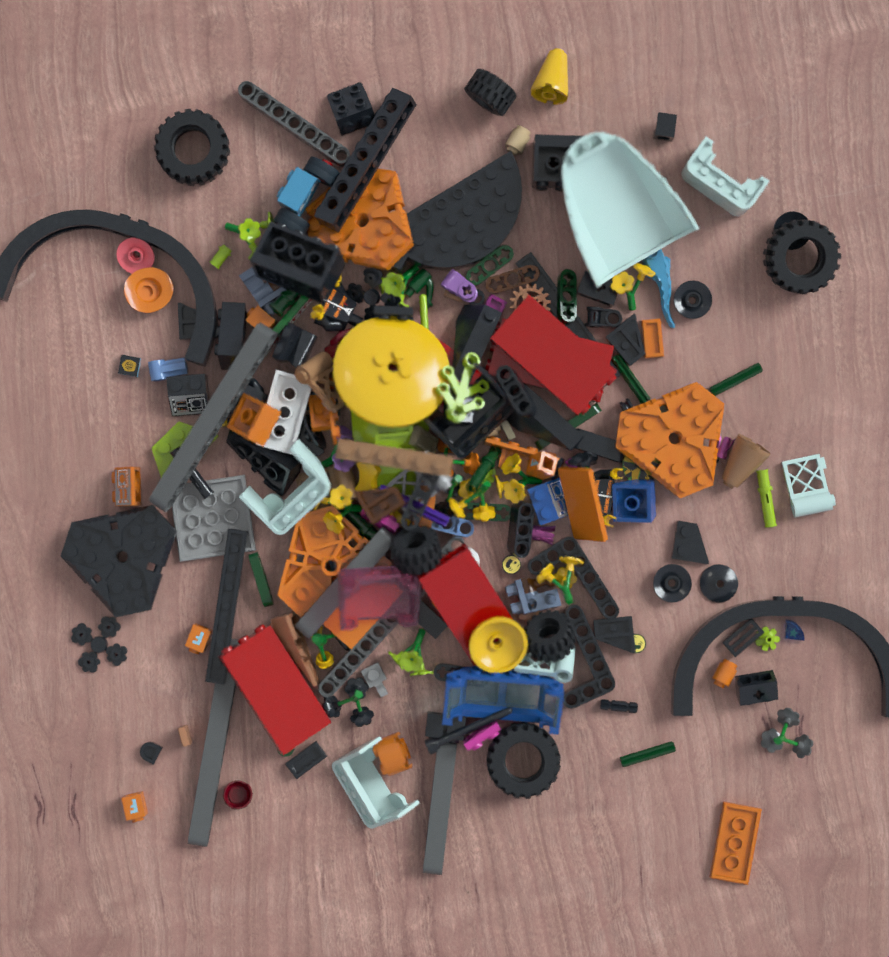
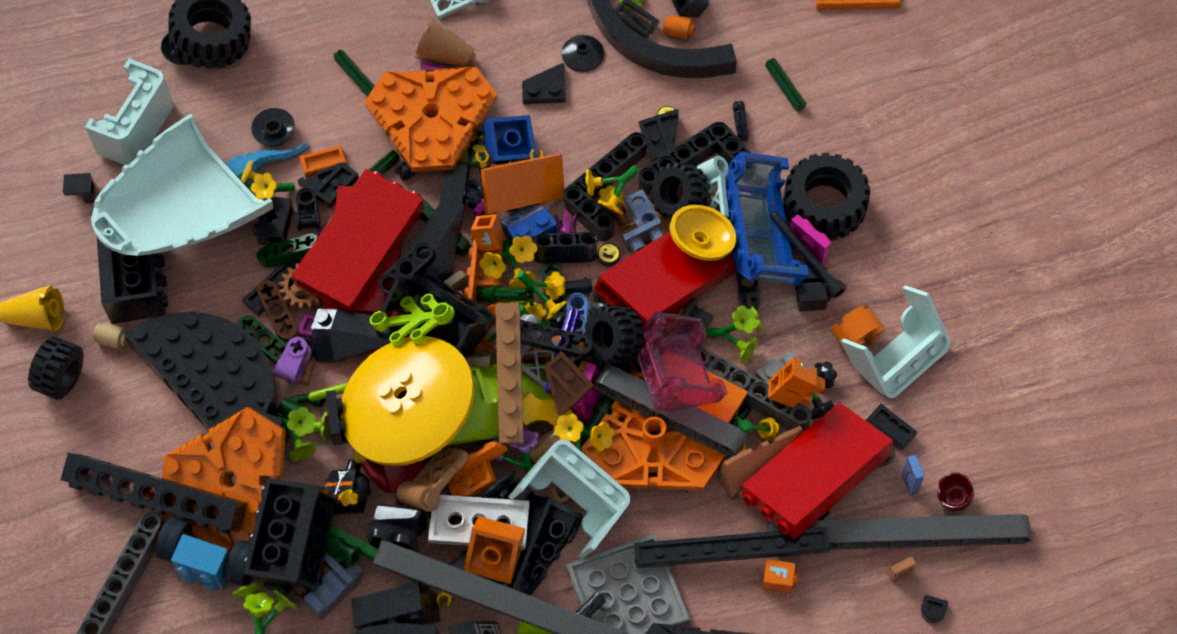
camera: 95 degrees left, 25 degrees down
(134, 806) = (1005, 611): orange brick -> none
(256, 764) = (912, 475): none -> medium blue tile
(258, 315) = (370, 579): orange brick -> none
(261, 580) = (689, 518): dark green beam -> none
(343, 687) = (795, 384): none -> orange hips
(351, 108) = (90, 525): black bracket -> none
(371, 296) = (319, 454): black plant -> none
(439, 809) = (911, 272): dark grey beam -> none
(485, 533) = (578, 286): none -> black pin
(682, 583) = (592, 84): black dish -> none
(766, 498) = (482, 22): lime pin -> none

